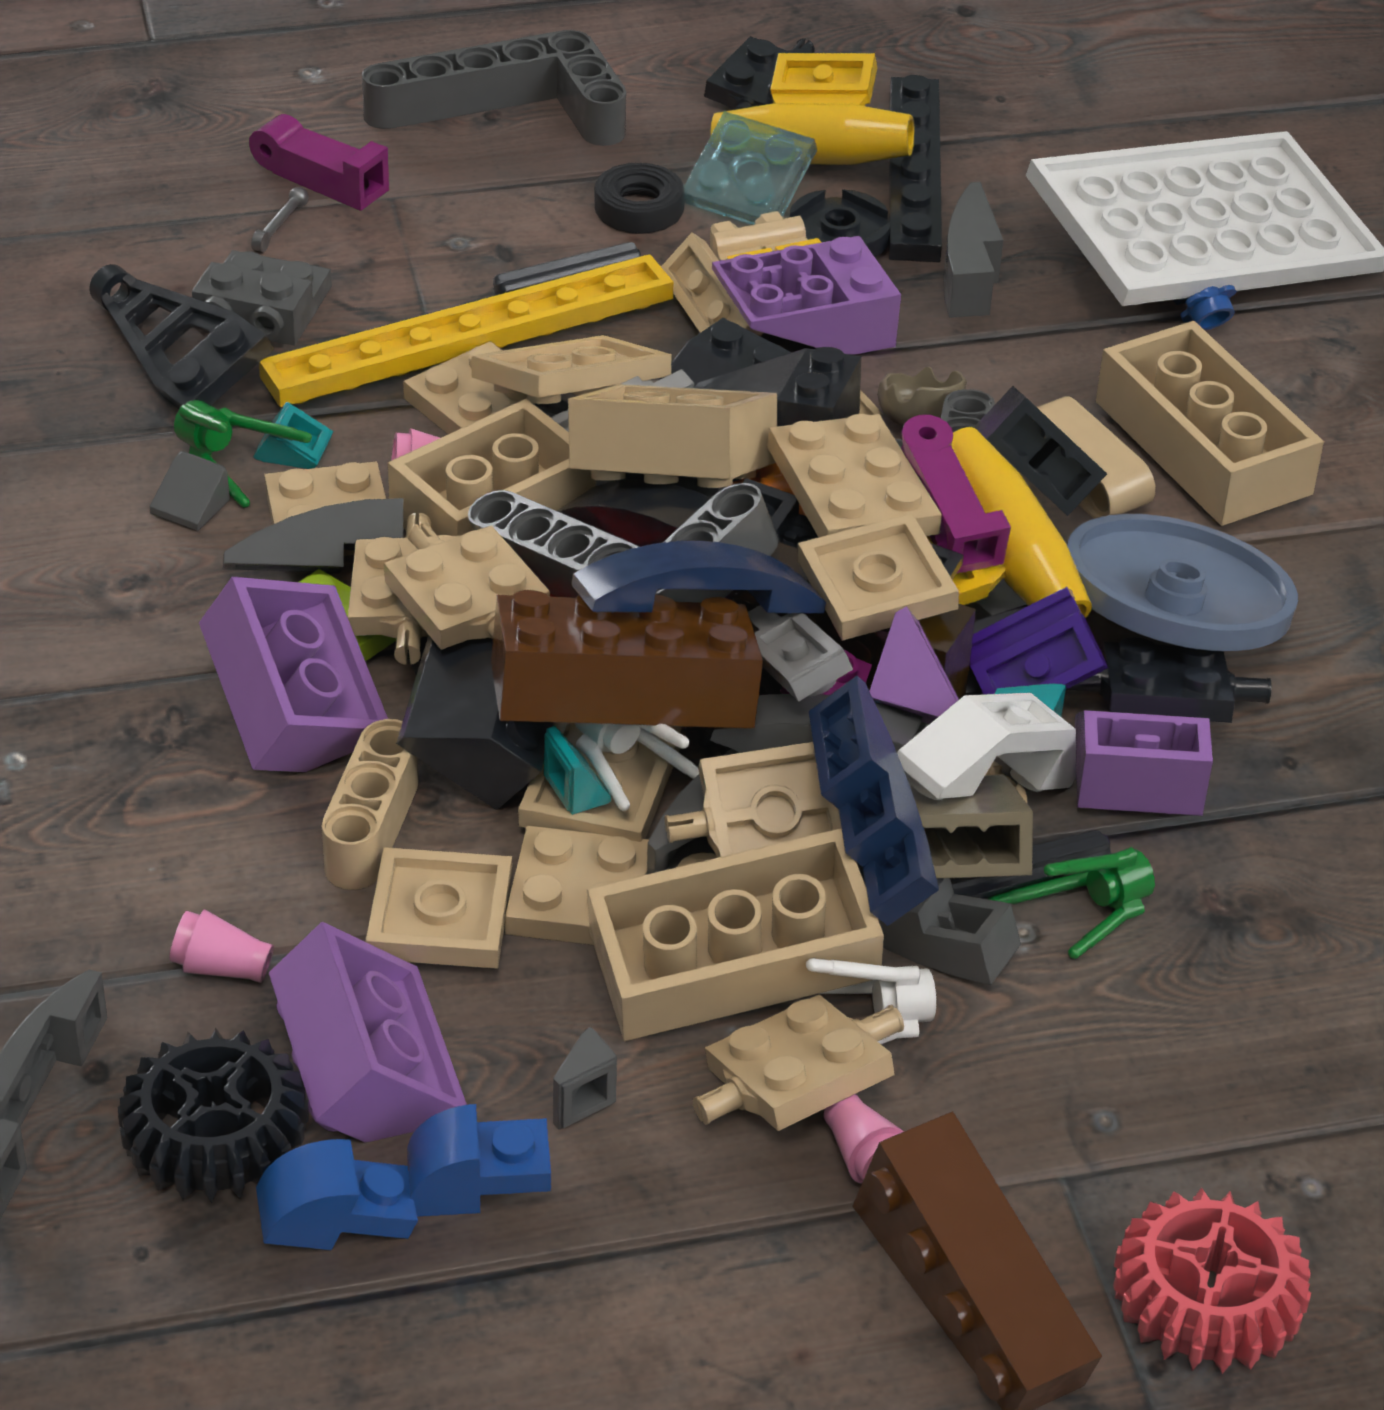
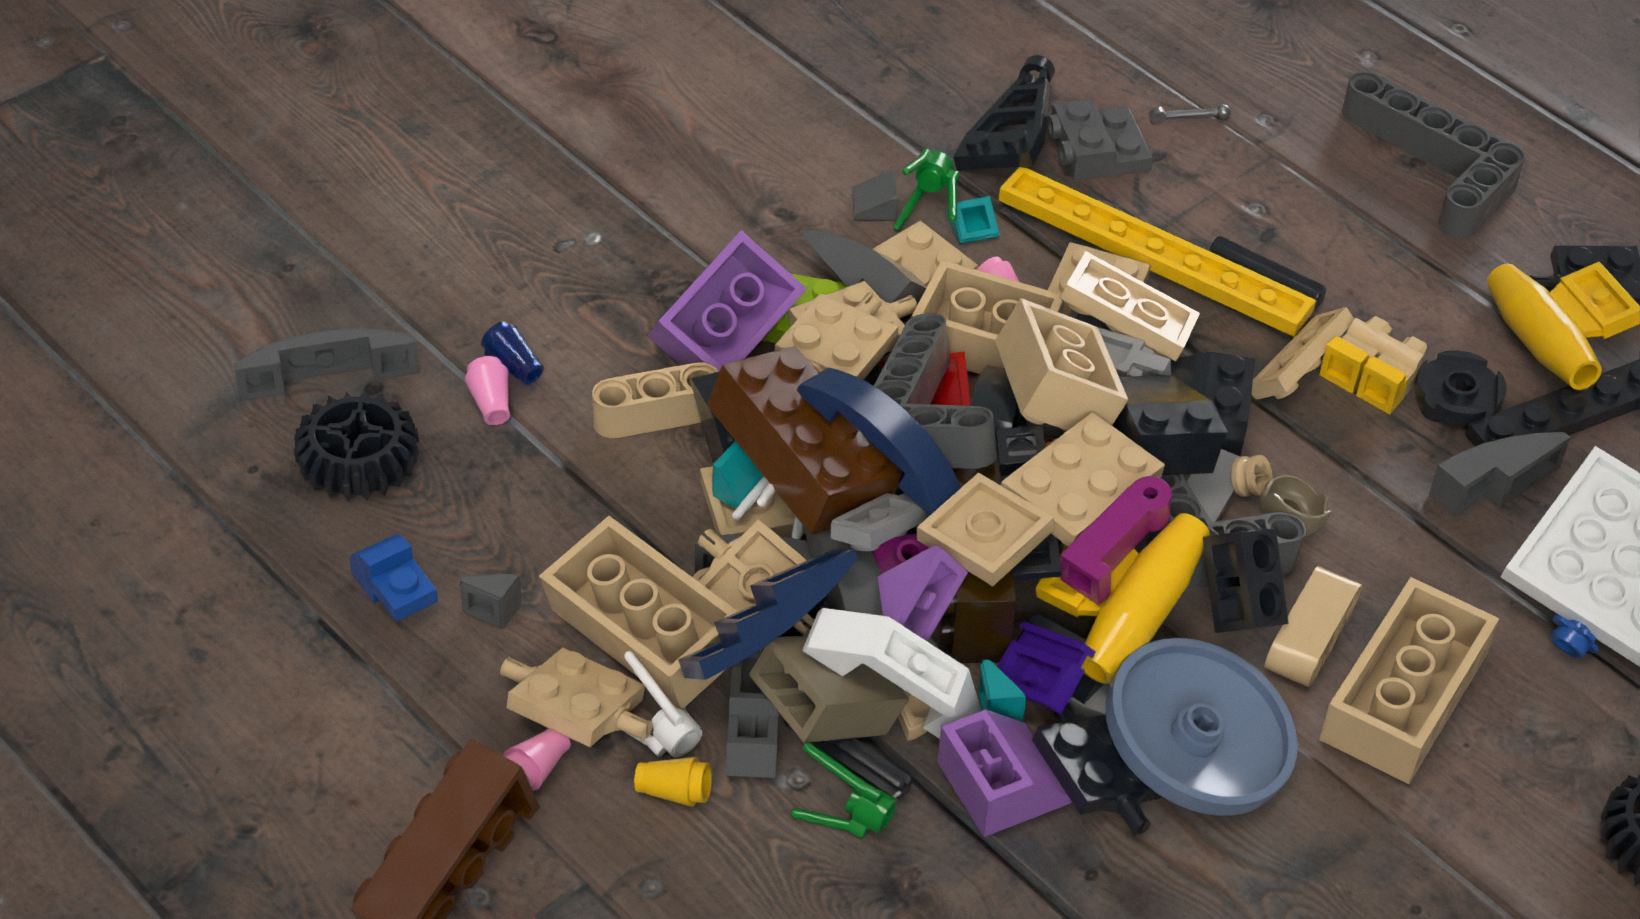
camera: 60 degrees right, 5 degrees up
(161, 899) = (513, 350): none -> clear blue cone
(322, 162) = (1262, 103): magenta leg -> none
(324, 1191) = (324, 523): blue brick -> none
(363, 1036) = (460, 486): medium lavender slope -> none
(441, 907) = (594, 472): tan plate -> none
(554, 877) = (668, 521): tan plate -> none
(639, 215) = (1384, 289): black tyre -> none
(748, 169) = (1466, 311): clear light blue plate -> none
(816, 295) = (1343, 401): medium lavender slope -> none
(980, 1025) = (676, 780): none -> yellow cone

